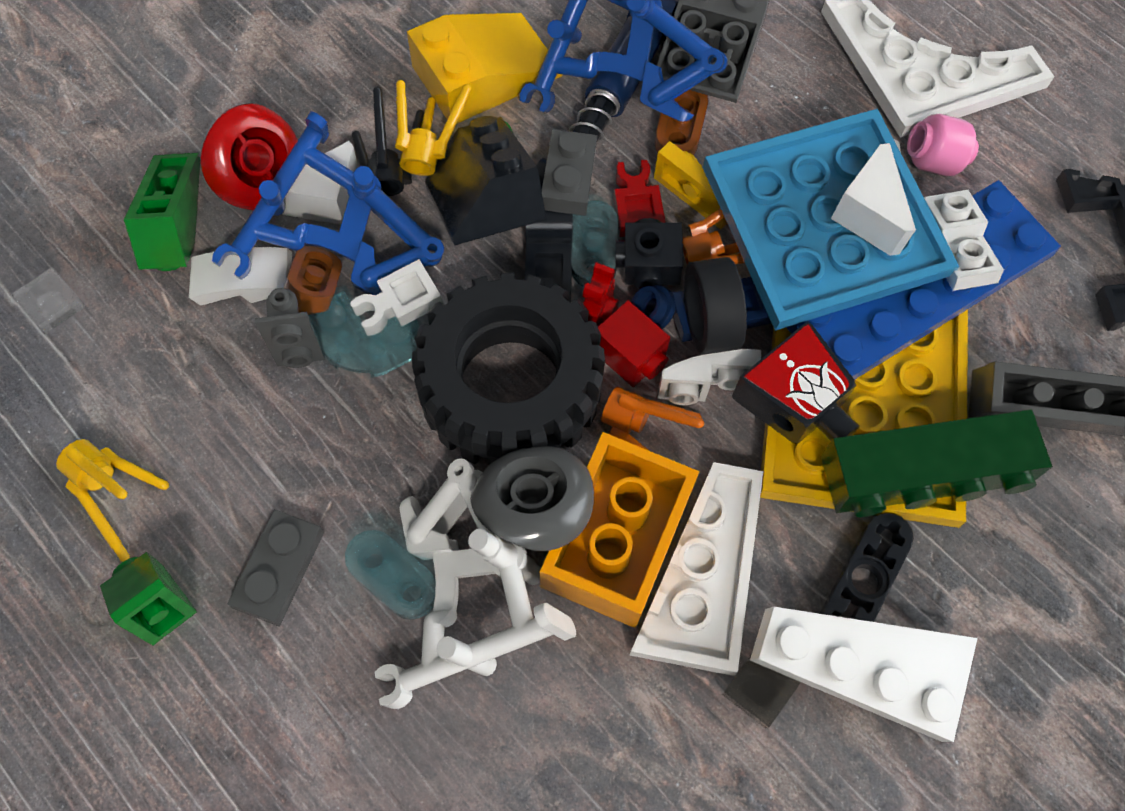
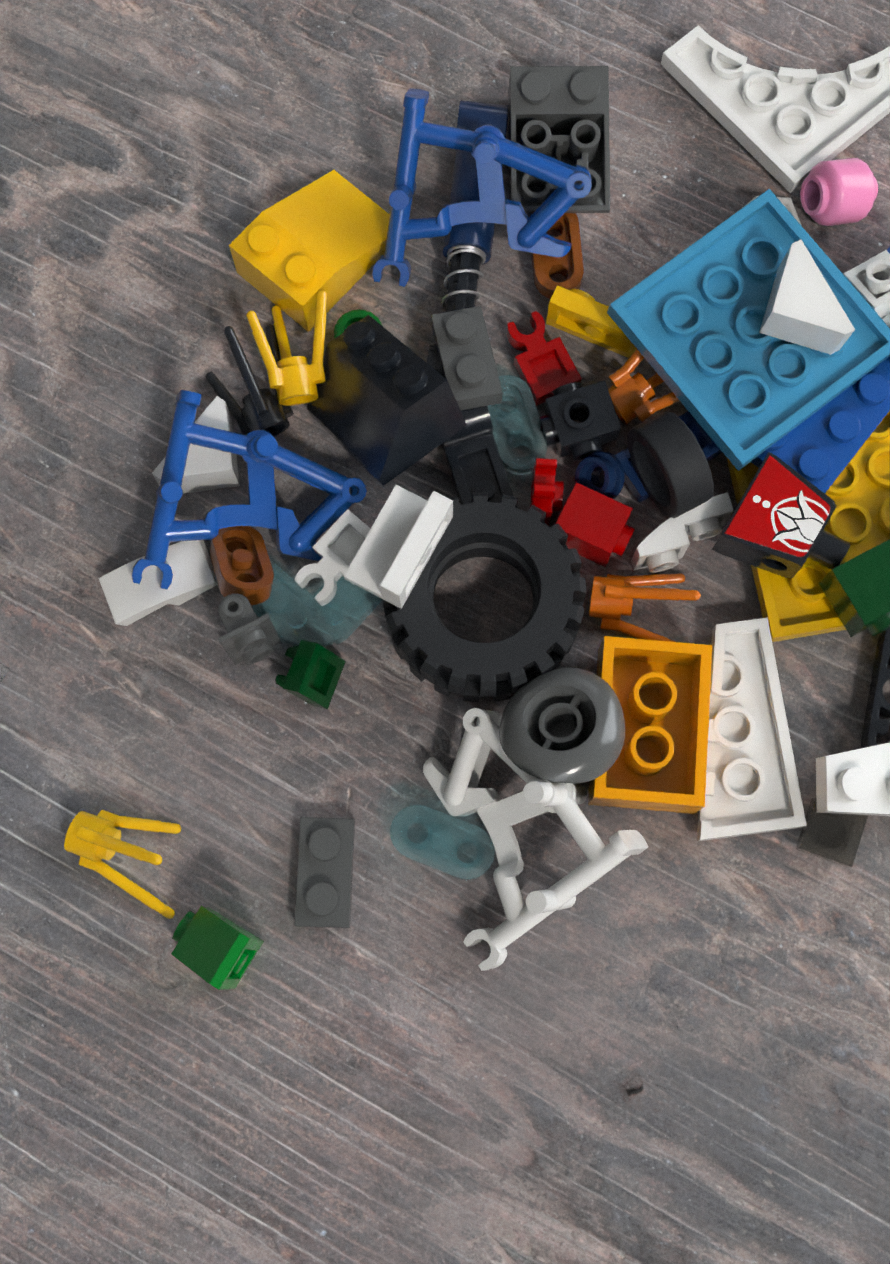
camera: 15 degrees left, 10 degrees up
(165, 212) = (49, 534): green slope -> none
(243, 151) = (118, 447): red hat -> none
(337, 390) = (312, 673): none -> dark green tile
(447, 292) = (400, 544): none -> white panel

